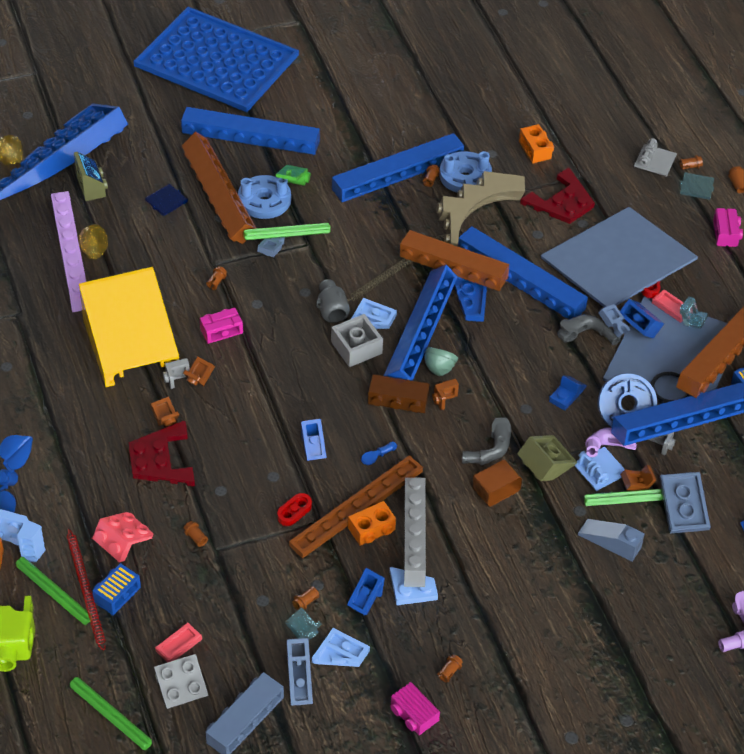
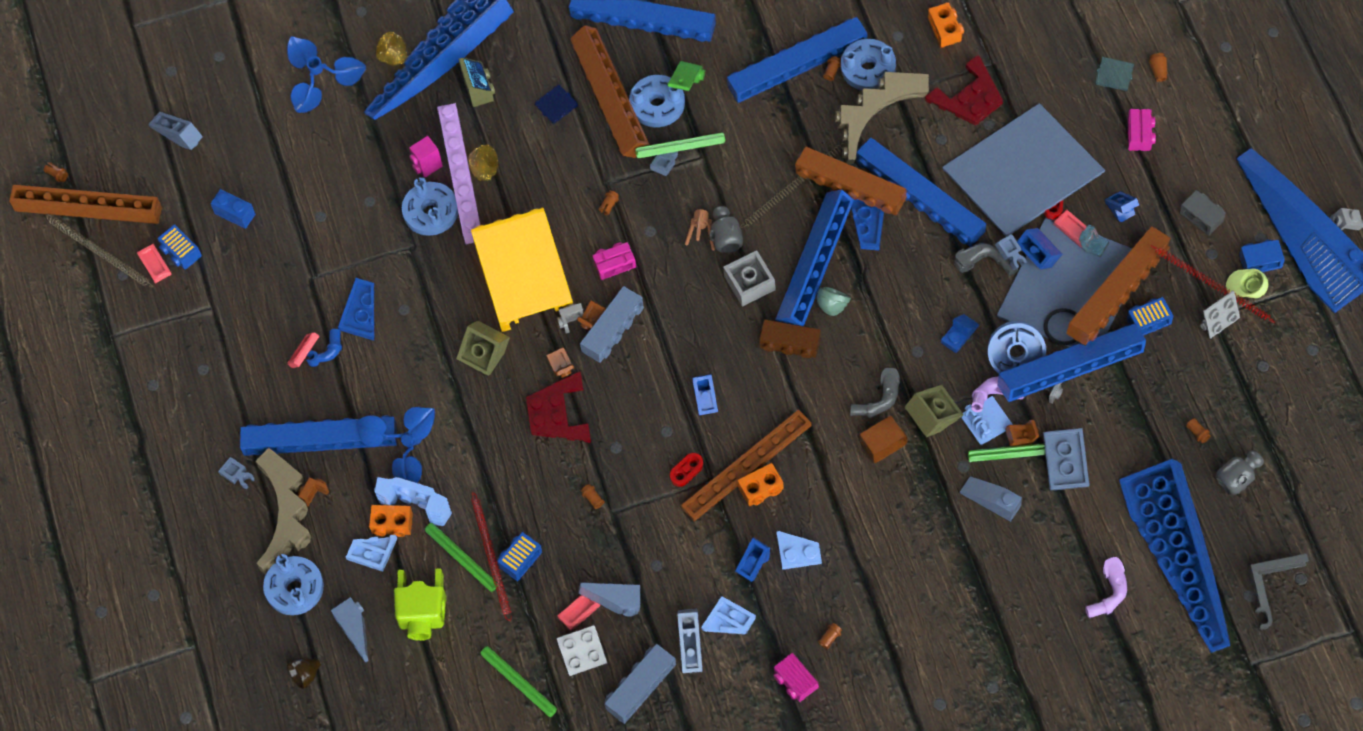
camera: 10 degrees right, 15 degrees up
(36, 234) = (425, 157): none -> dark pink brick
(39, 268) = (424, 196): none -> medium blue piece
(85, 397) = (482, 347): none -> olive slope
(118, 534) = (522, 497): coral bracket -> none
(218, 379) = (612, 324): none -> sand blue brick
(220, 628) = (616, 597): none -> sand blue slope
(302, 625) = (693, 593): clear light blue bracket -> none
(305, 598) = (696, 565): dark orange pin -> none
(307, 294) = (700, 221): none -> nougat plant
(371, 456) = (761, 409): blue piece -> none
(378, 314) = (768, 245): light blue wing -> none
(415, 533) = (800, 495): light grey arch -> none
(445, 391) = (836, 334): dark orange bracket -> none
(655, 159) = (1072, 40): light grey hinge -> none
(693, 162) = (1110, 45): dark orange pin -> none
(717, 287) = (1122, 205): none -> blue slope

